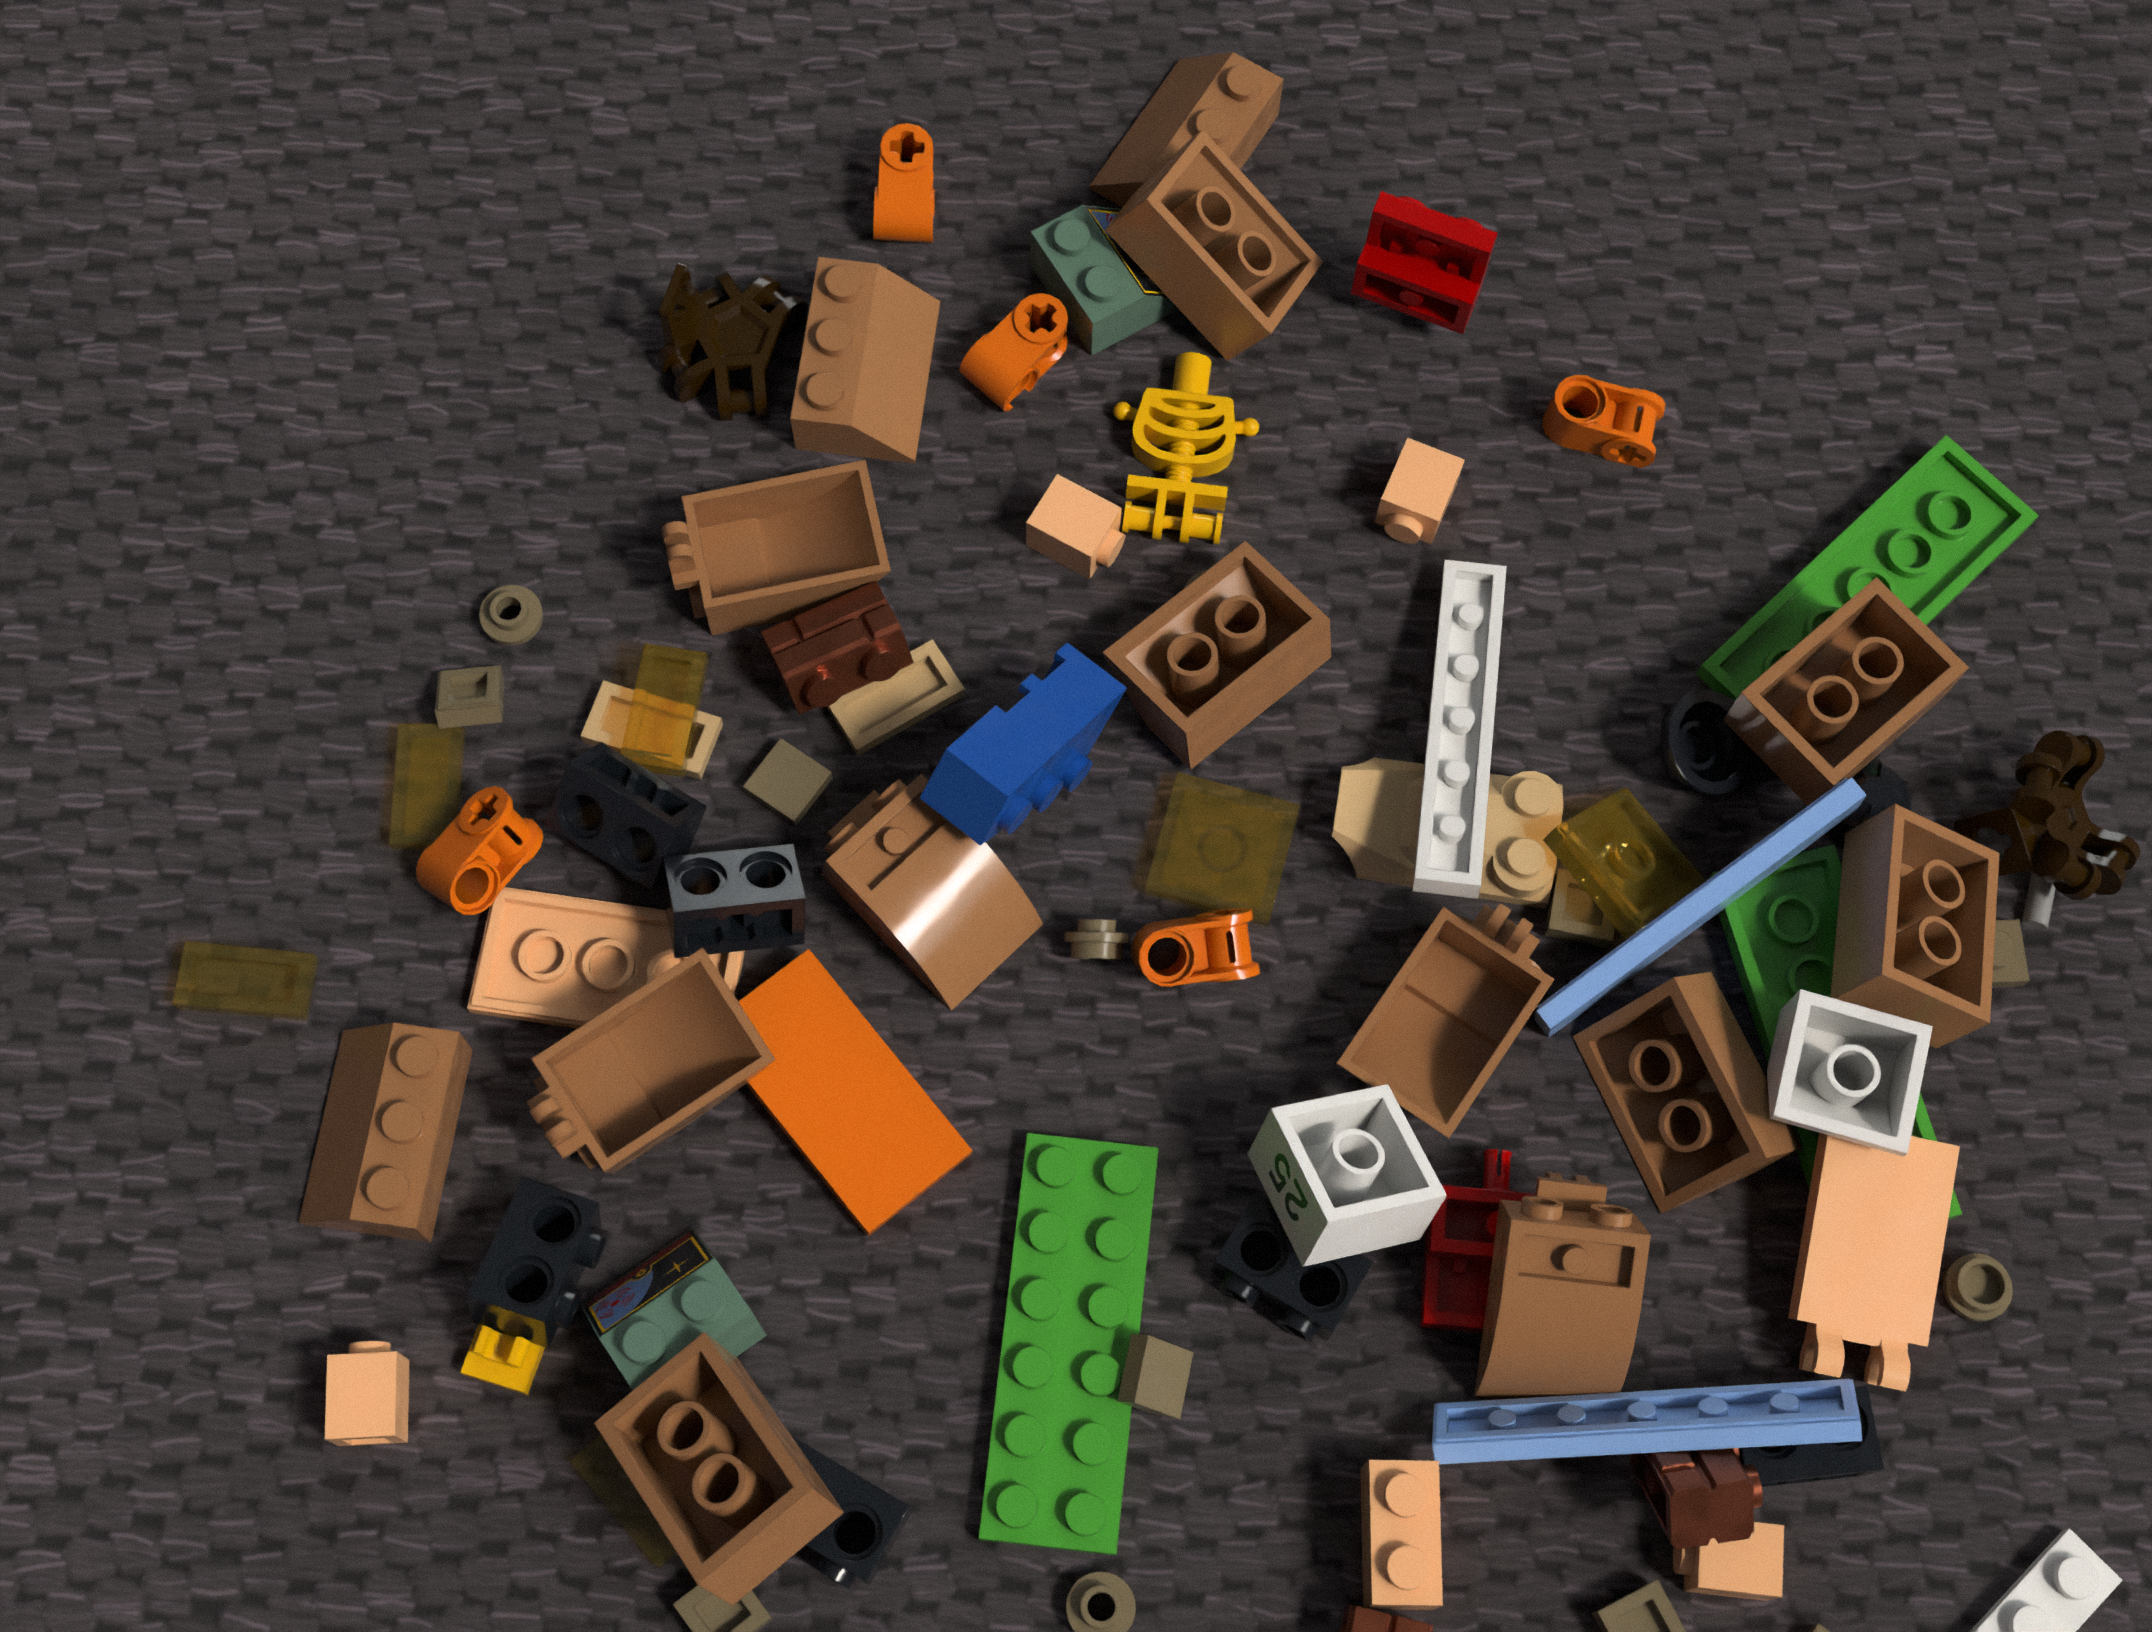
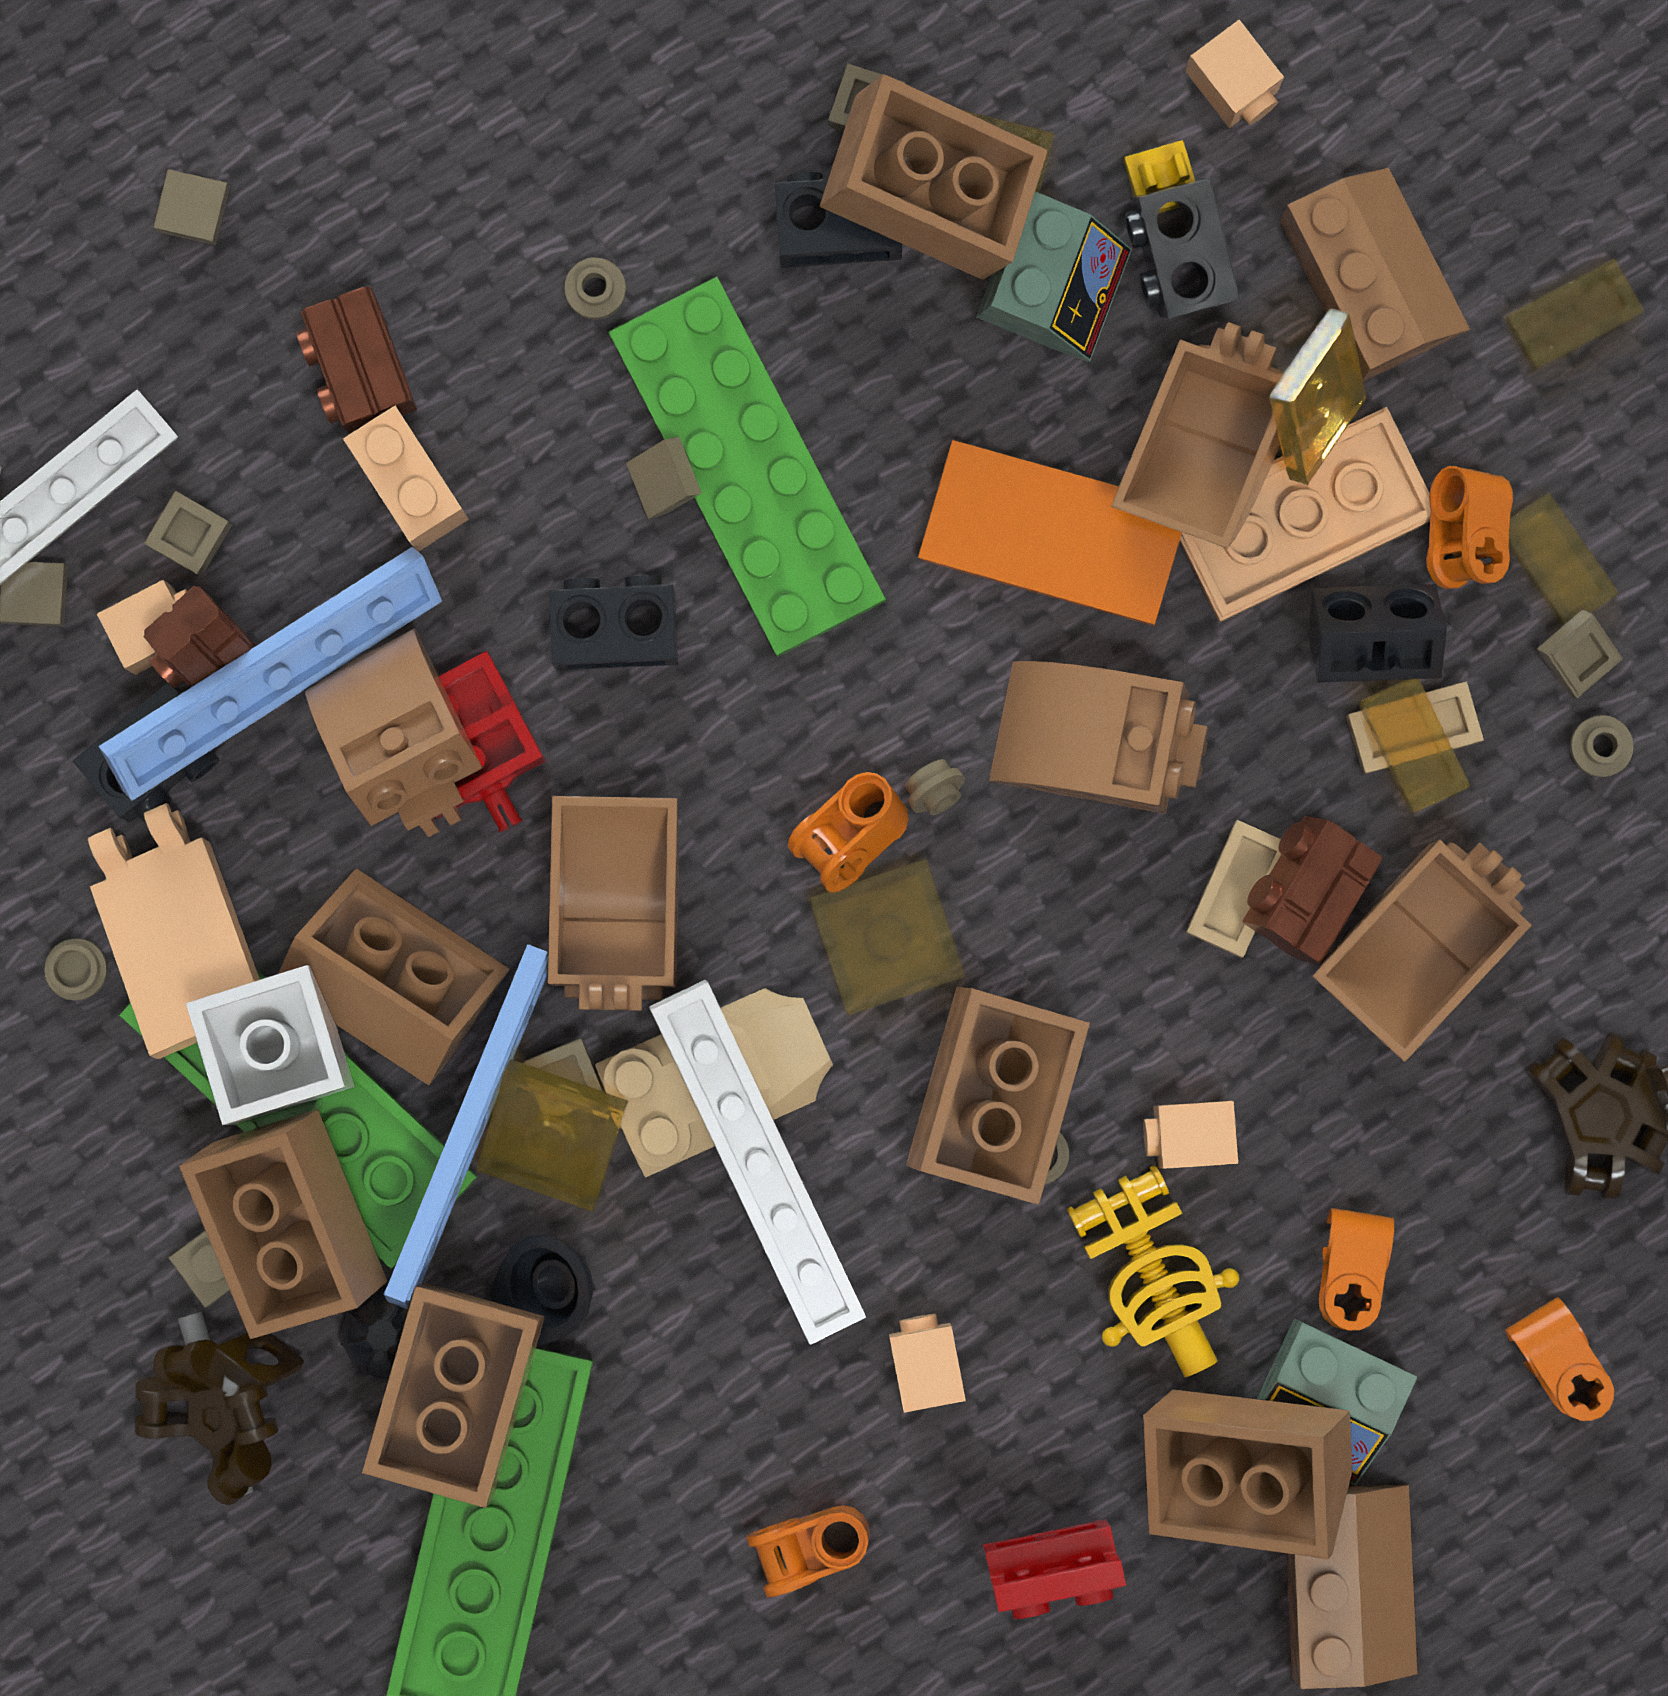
camera: 150 degrees right, 15 degrees up
(521, 1038) = (1318, 396): none -> clear yellow tile
(734, 900) = (1229, 609): black brick -> none
(788, 782) = (1273, 758): dark tan tile -> none
(864, 363) = (1476, 1168): medium nougat slope -> none
(1029, 753) = (1092, 884): blue wedge -> none
(1346, 1174) = (612, 707): white brick -> none

